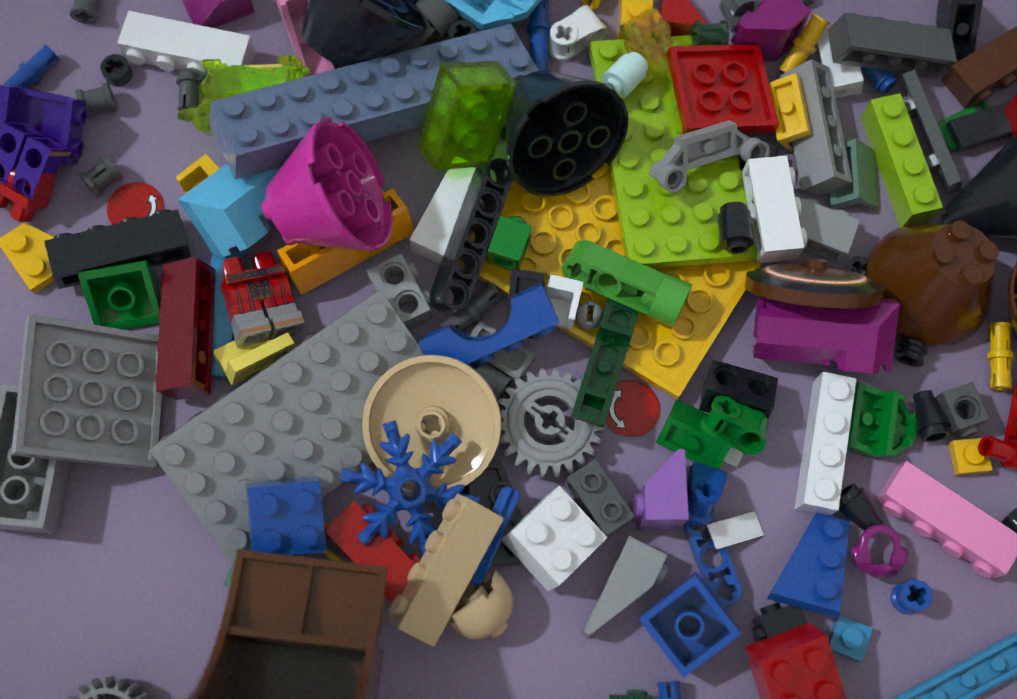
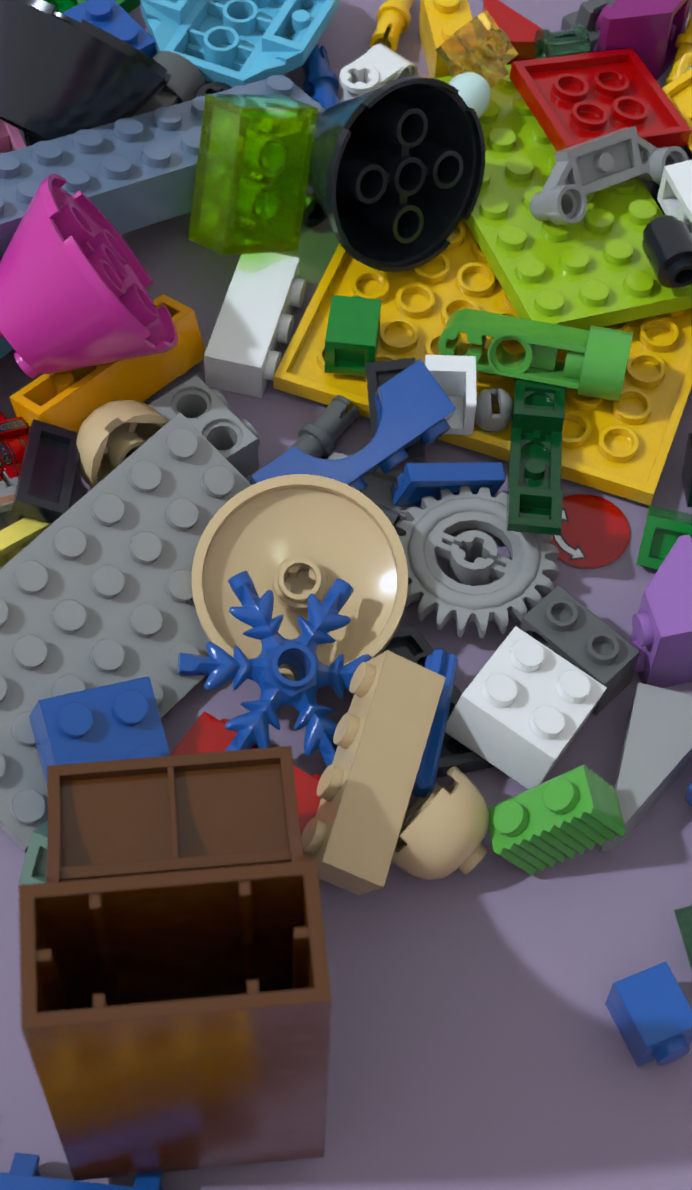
camera: 10 degrees left, 15 degrees down
(289, 312) = (46, 472): none -> black tile
(339, 293) = (113, 435): none -> tan cylinder
(461, 246) = (295, 333): black beam -> none
(534, 363) = (430, 478): none -> blue tile
(551, 621) = (556, 820): none -> bright green brick

